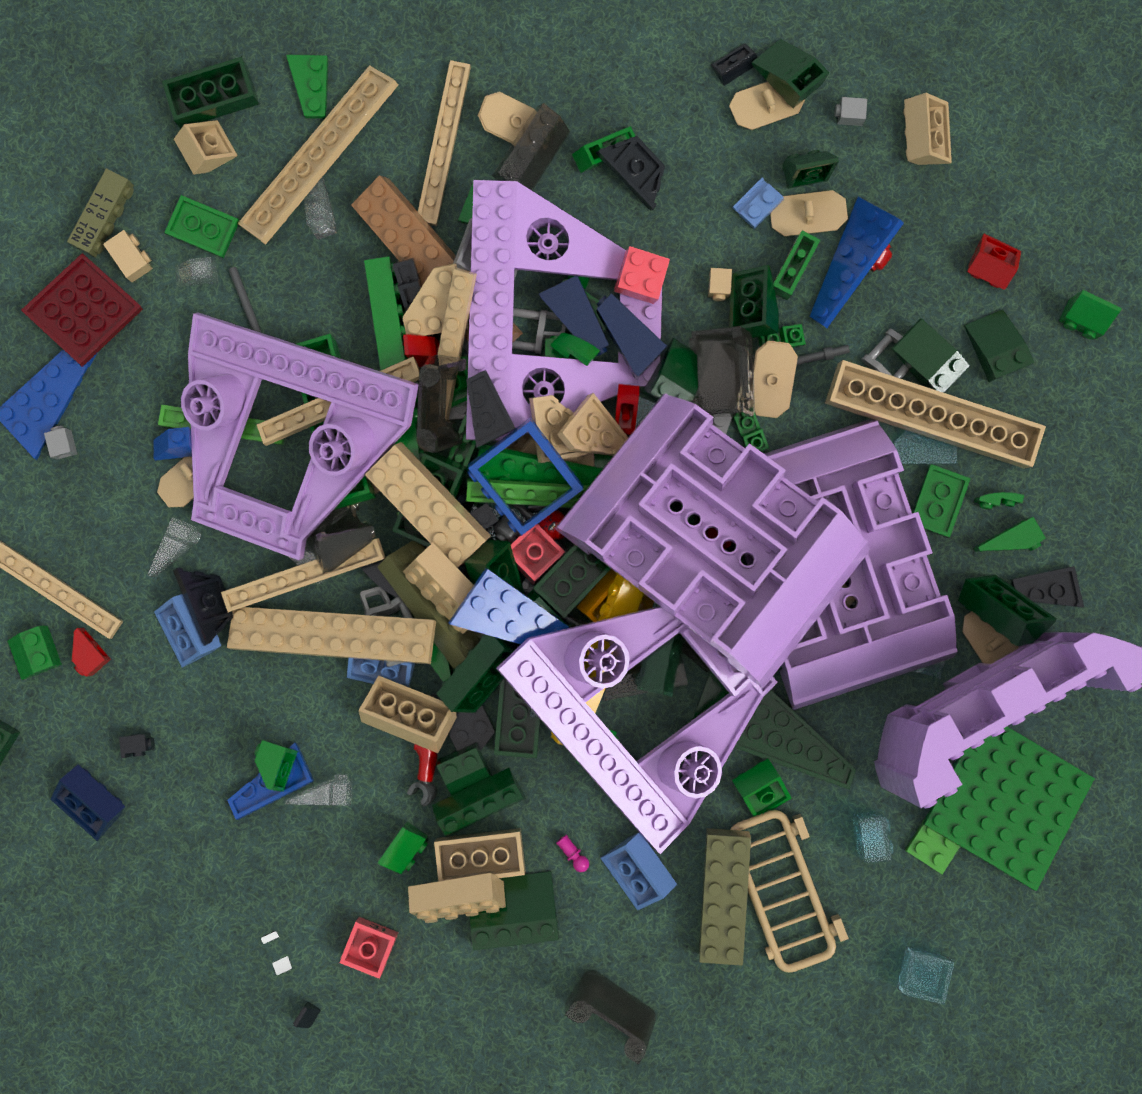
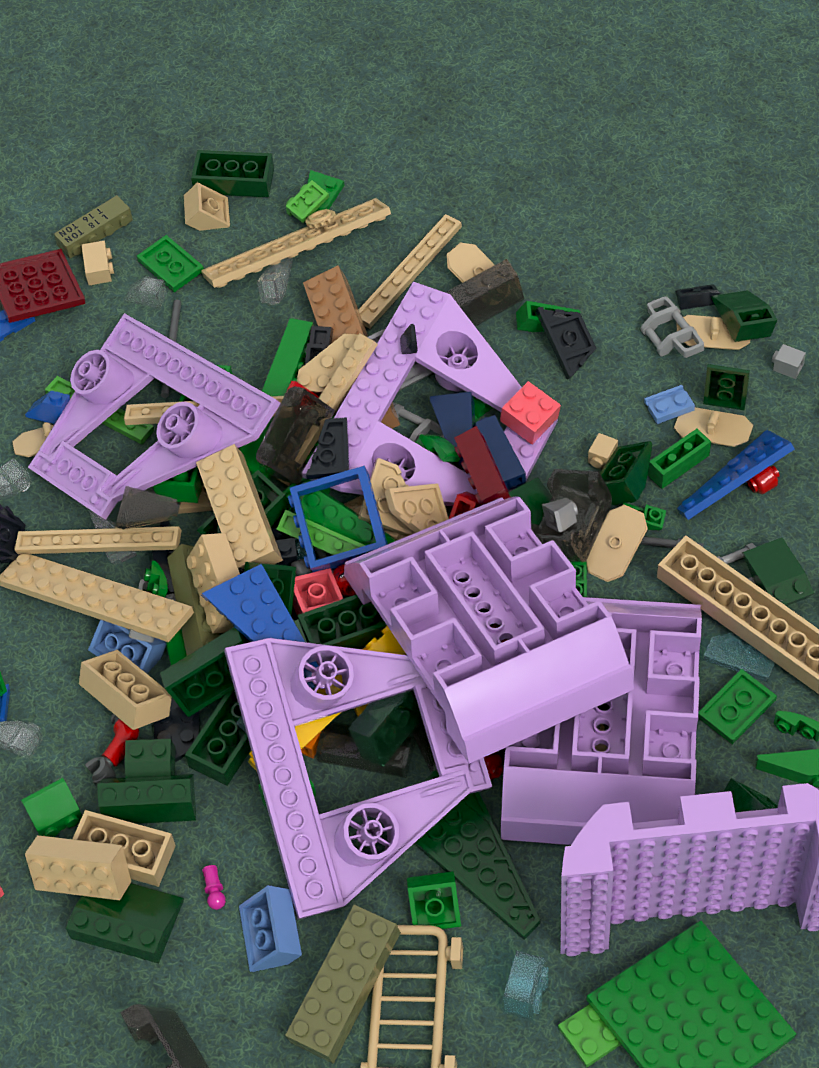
camera: 25 degrees right, 30 degrees down
(305, 102) = (306, 201): none -> bright green bracket
(325, 113) = (321, 218): none -> tan gear
(380, 593) = (156, 580): none -> green slope
(504, 256) = (409, 341): none -> black slope
(629, 362) = (481, 466): none -> dark red brick
(718, 379) = (560, 514): none -> light grey slope
(737, 132) = (675, 339): none -> light grey bar

